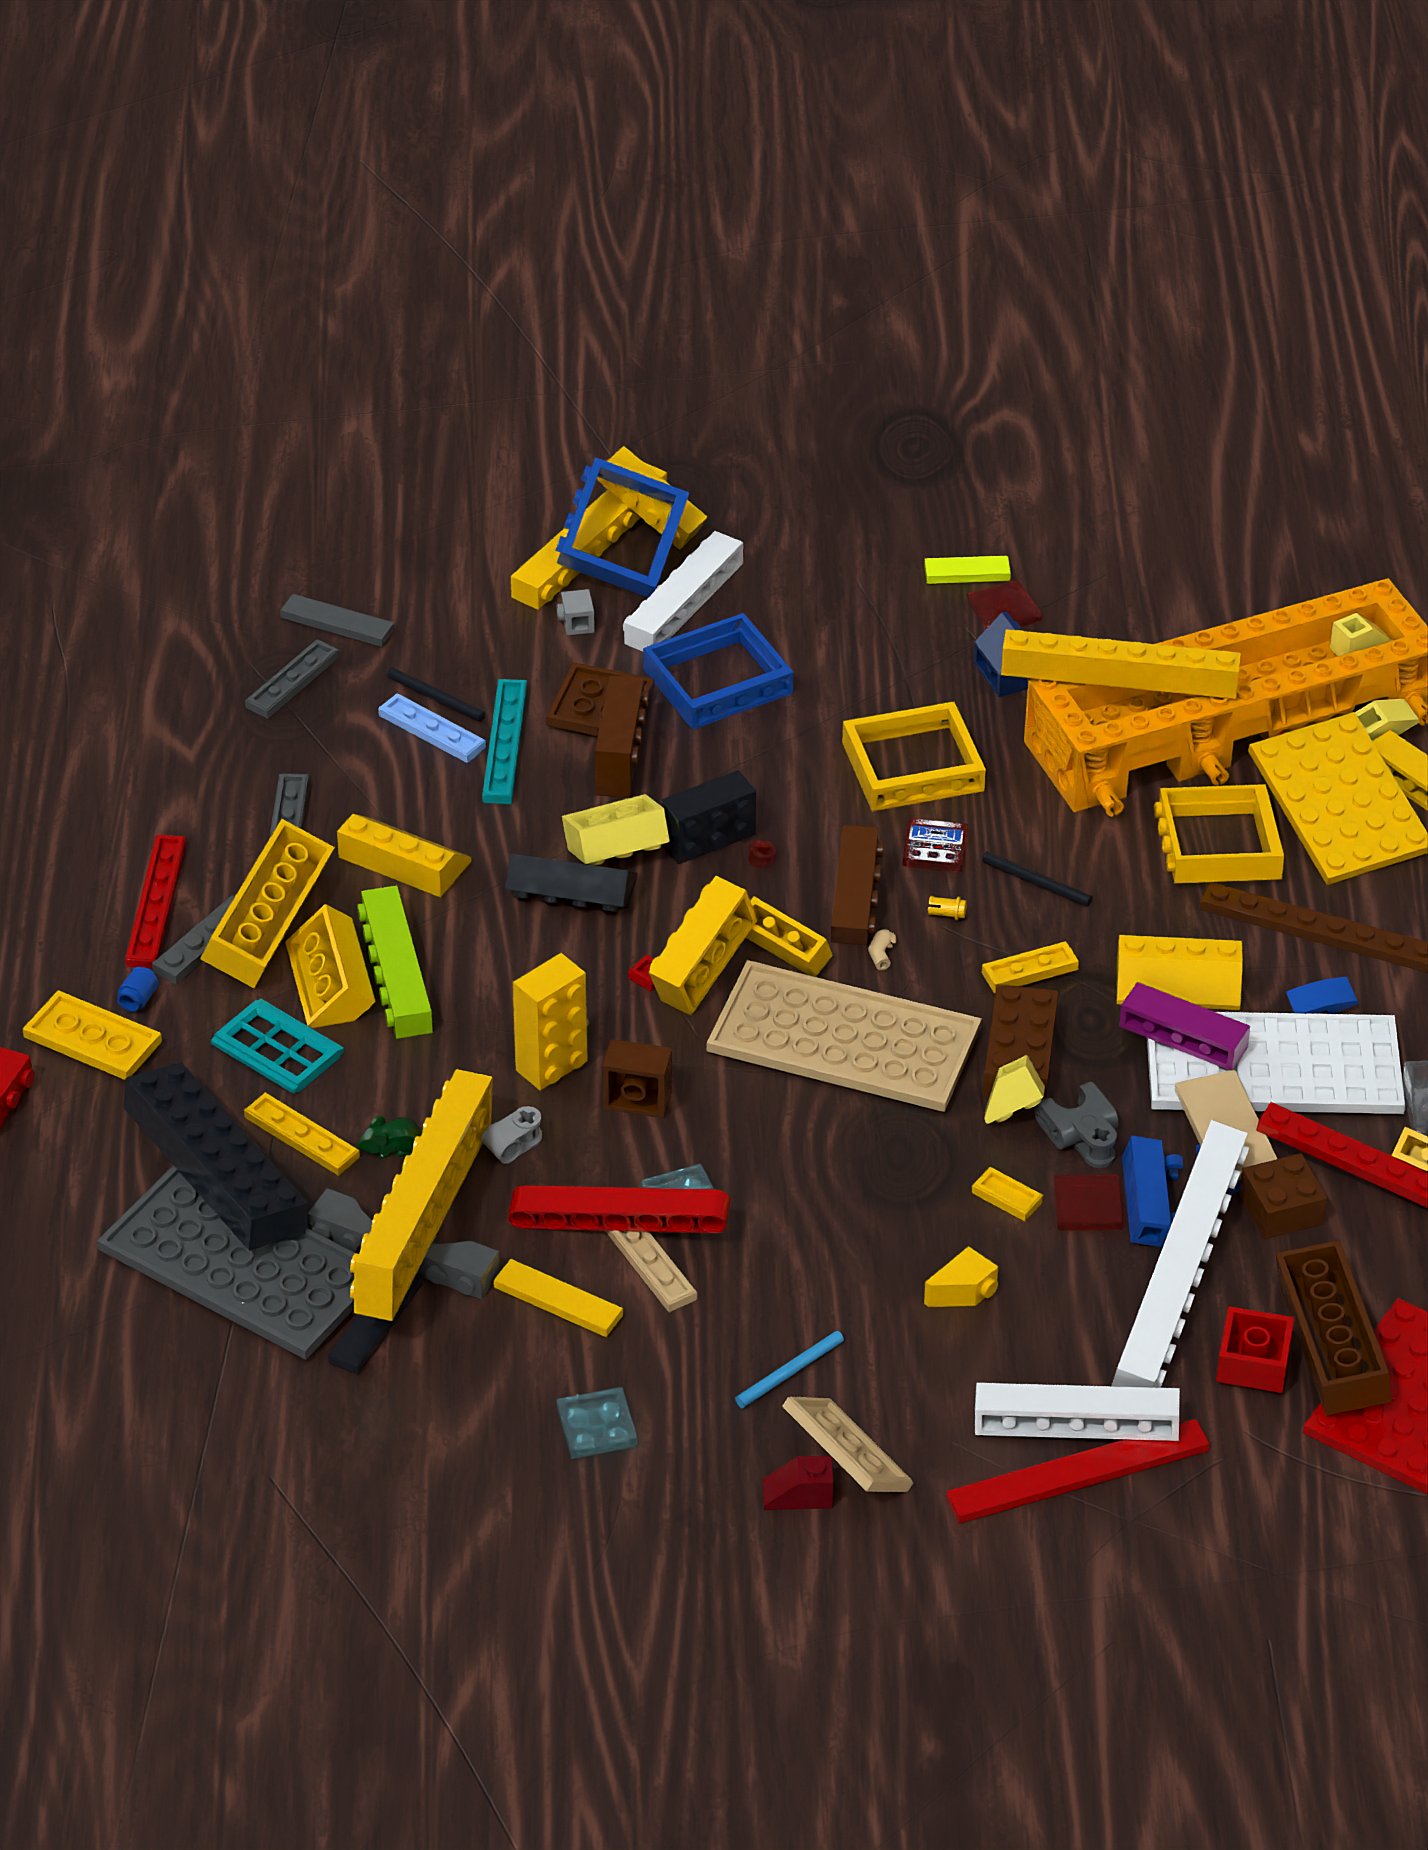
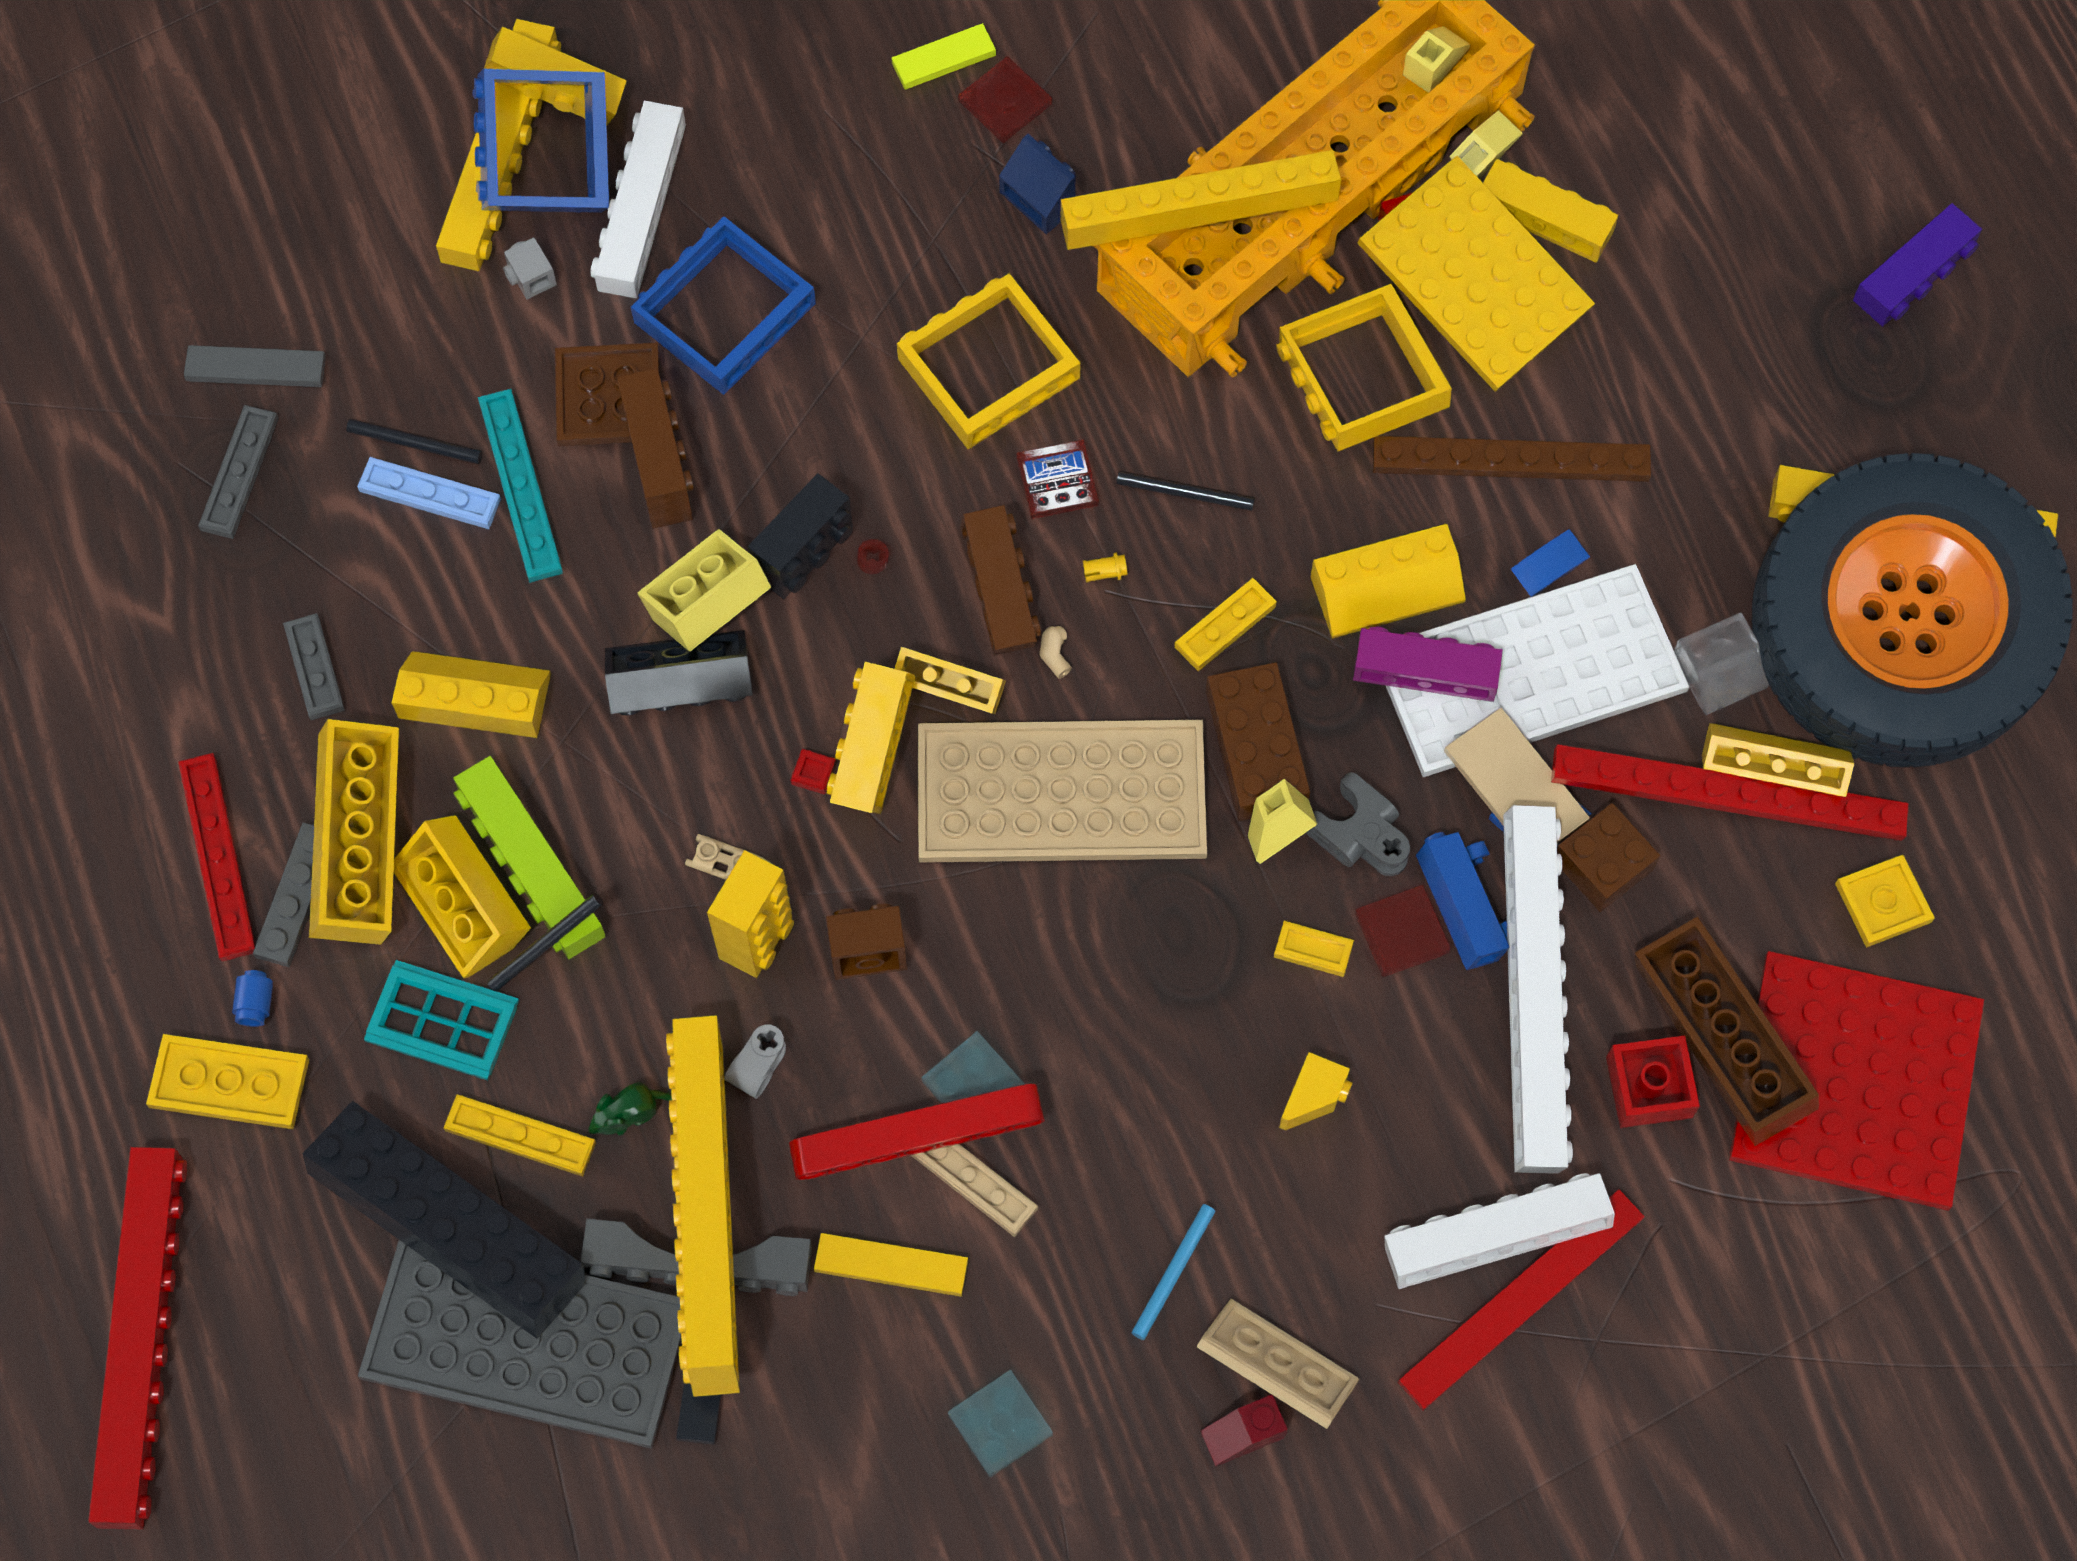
camera: 20 degrees left, 25 degrees up
(381, 1008) = (545, 942): none -> black bar

